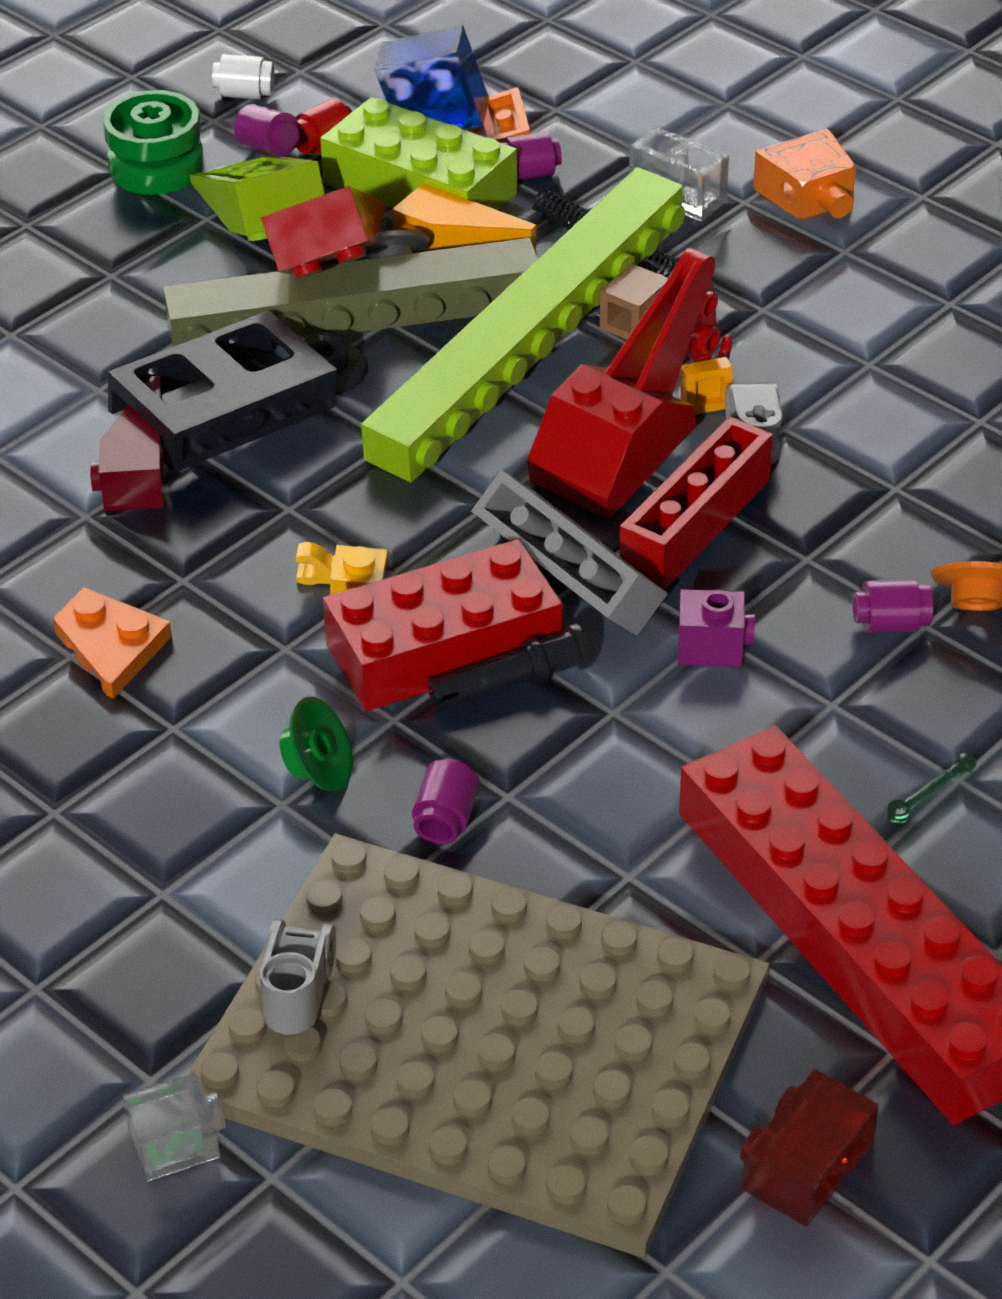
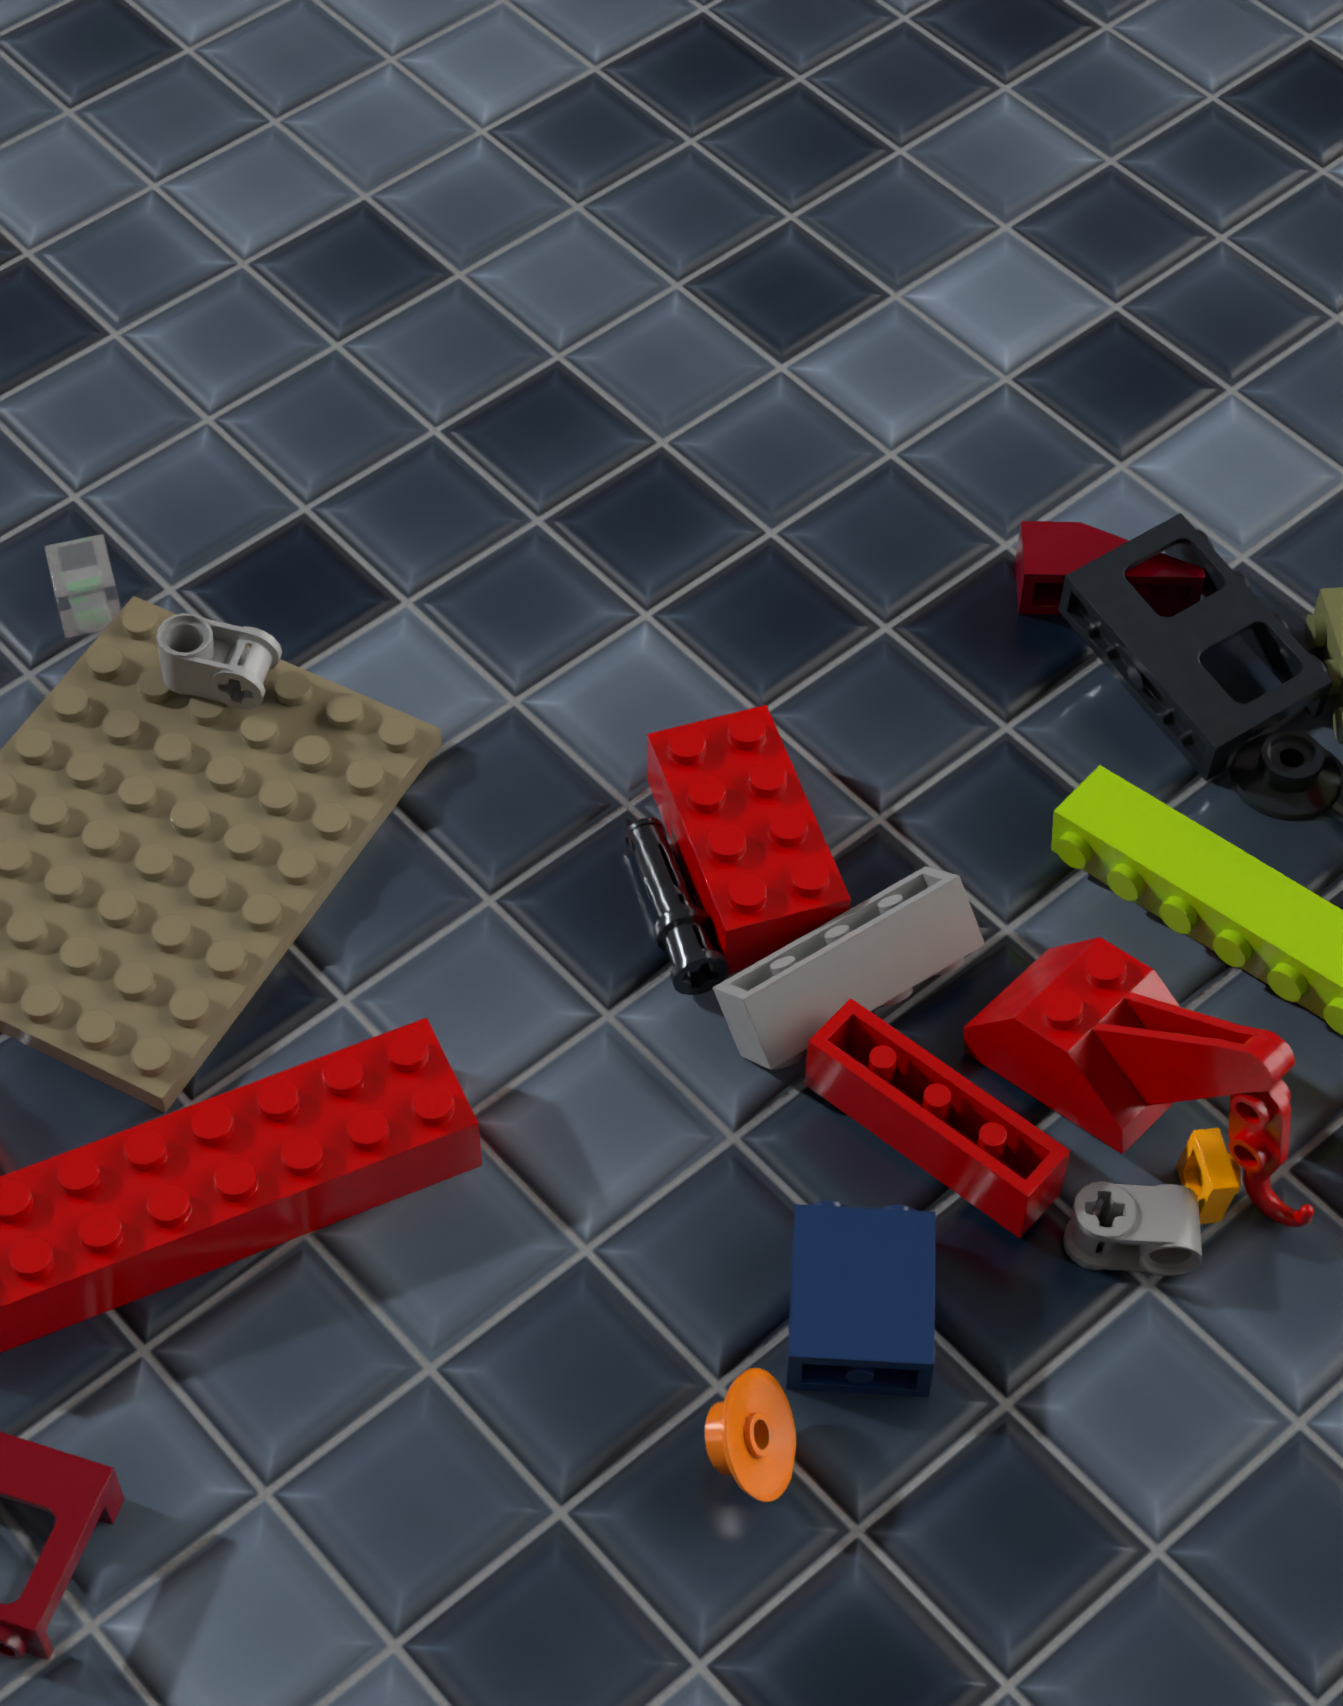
camera: 95 degrees right, 10 degrees up
(110, 637) = (784, 557): orange wing -> none
(317, 746) = (542, 730): green piece -> none
(344, 570) = (873, 772): yellow plate -> none
(445, 801) = (467, 824): magenta brick -> none
(713, 628) = (709, 1114): magenta brick -> none
(845, 538) = (862, 1300): none -> dark blue brick
(893, 606) = (727, 1328): magenta brick -> none
(899, 810) = (385, 1287): clear green hinge -> none

